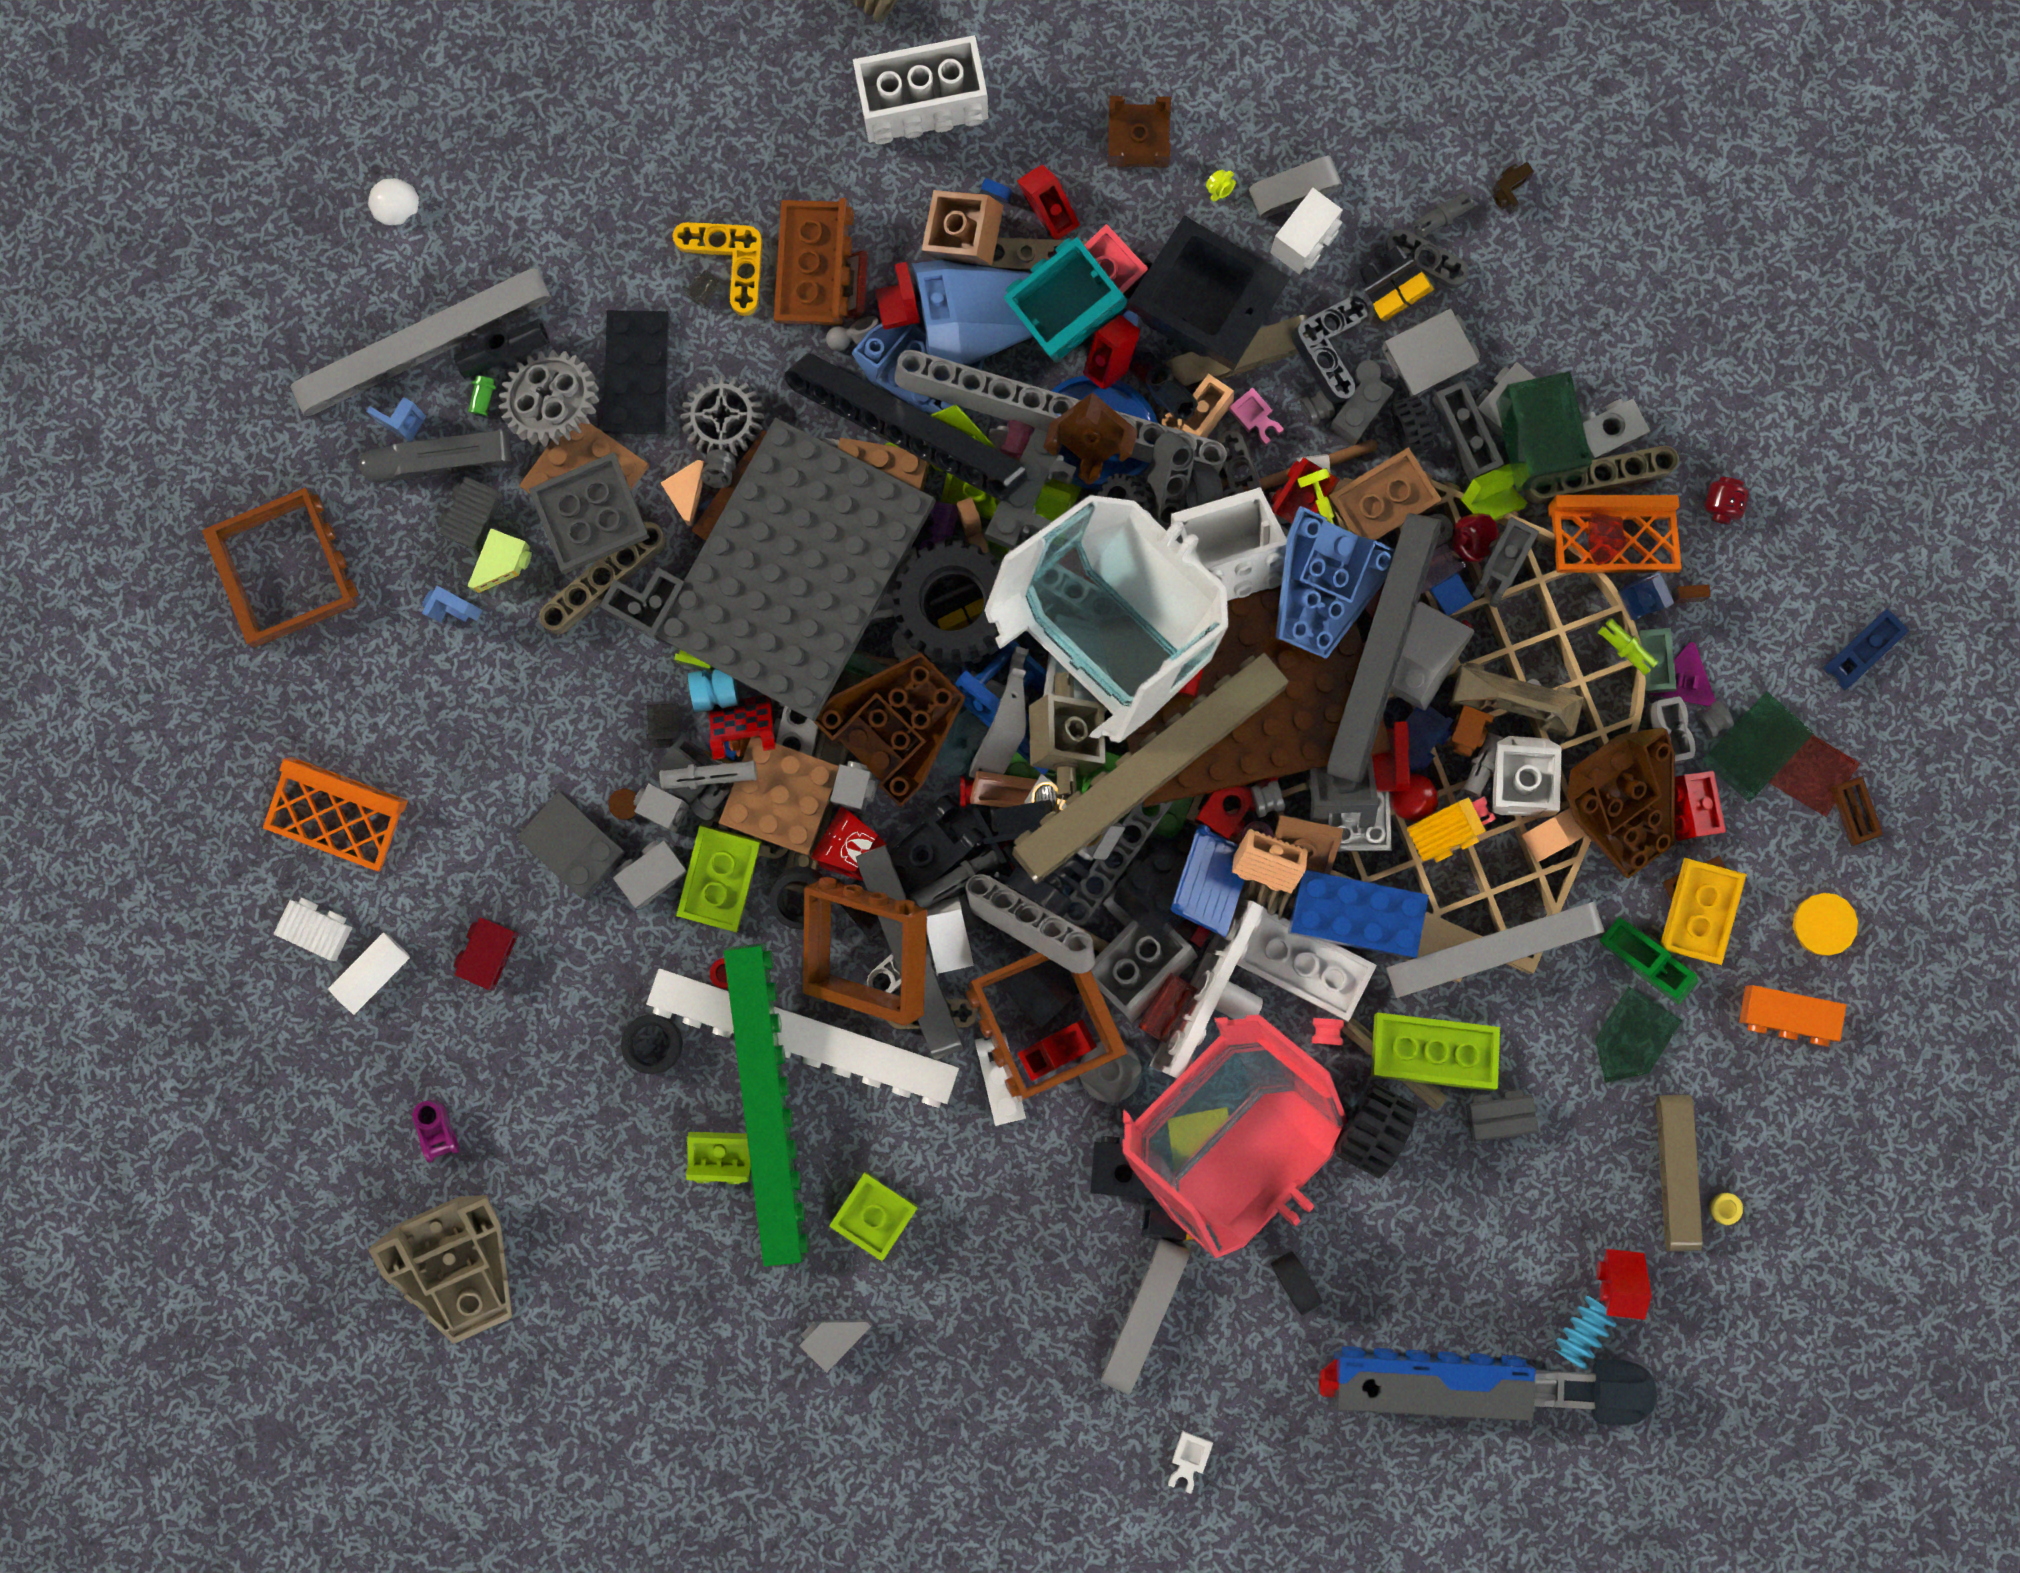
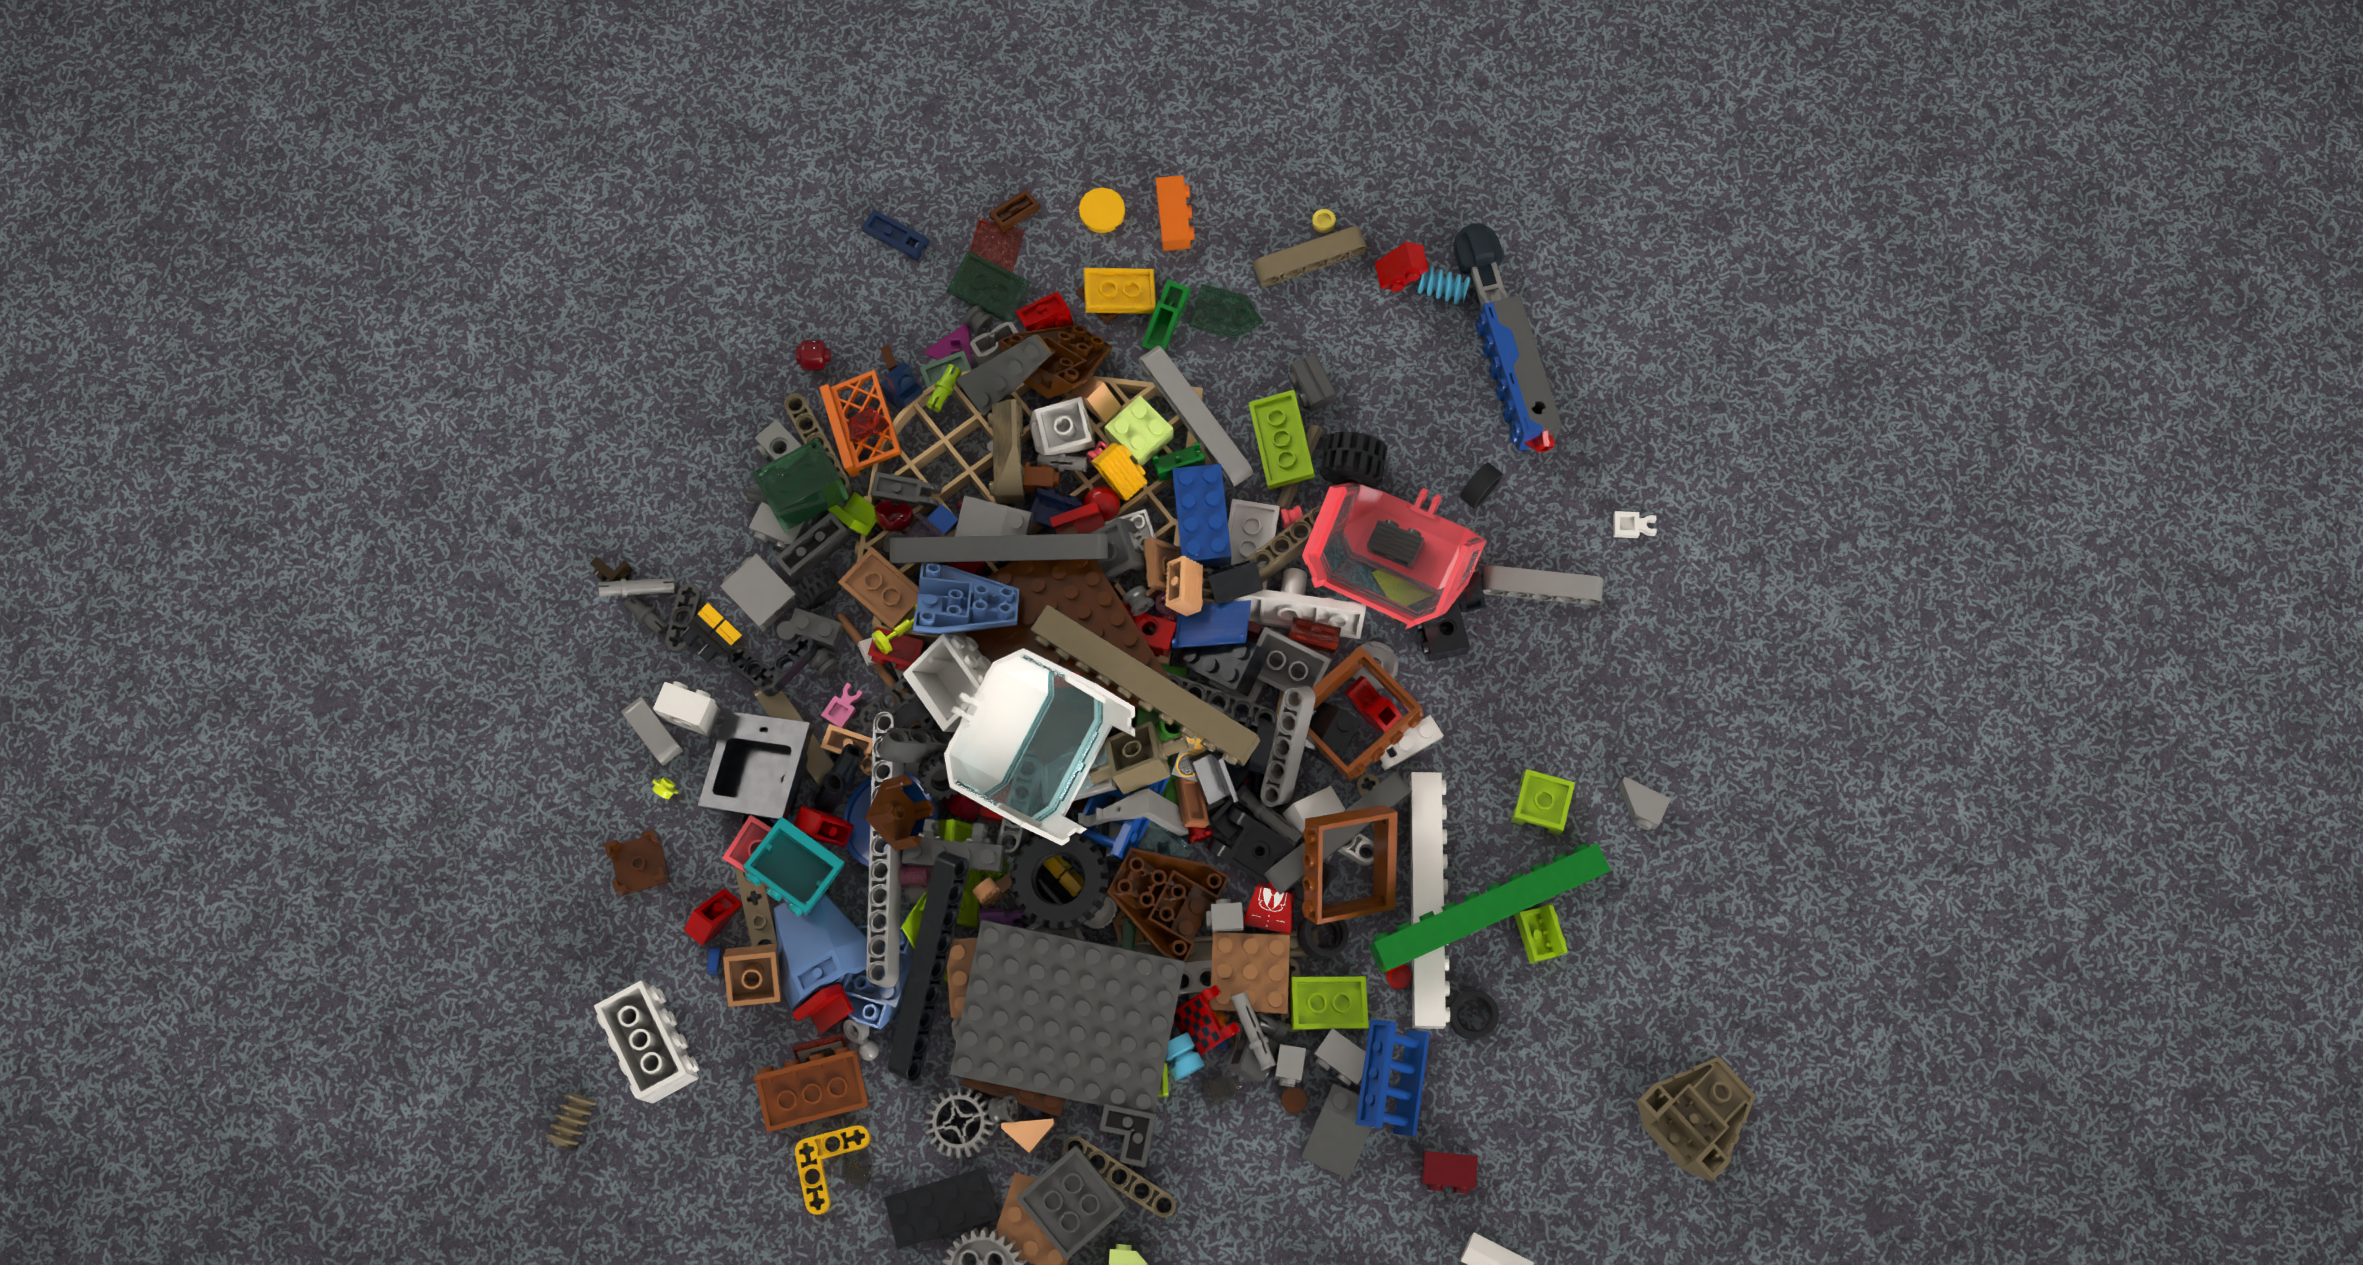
camera: 110 degrees left, 10 degrees down
(435, 1132) = (1604, 1163): magenta piece -> none
(615, 902) = (1376, 1078): none -> blue fence
(1252, 1148) = (1395, 543): none -> dark grey brick
(1259, 926) = (1235, 581): none -> black panel
(1289, 986) = (1285, 539): none -> dark tan beam
(1441, 909) = (1182, 458): none -> green hinge
(1481, 209) = (635, 587): none -> light grey pin
(1493, 871) = (1140, 431): none -> yellowish green brick
(1618, 719) = (1004, 373): none -> dark grey wing

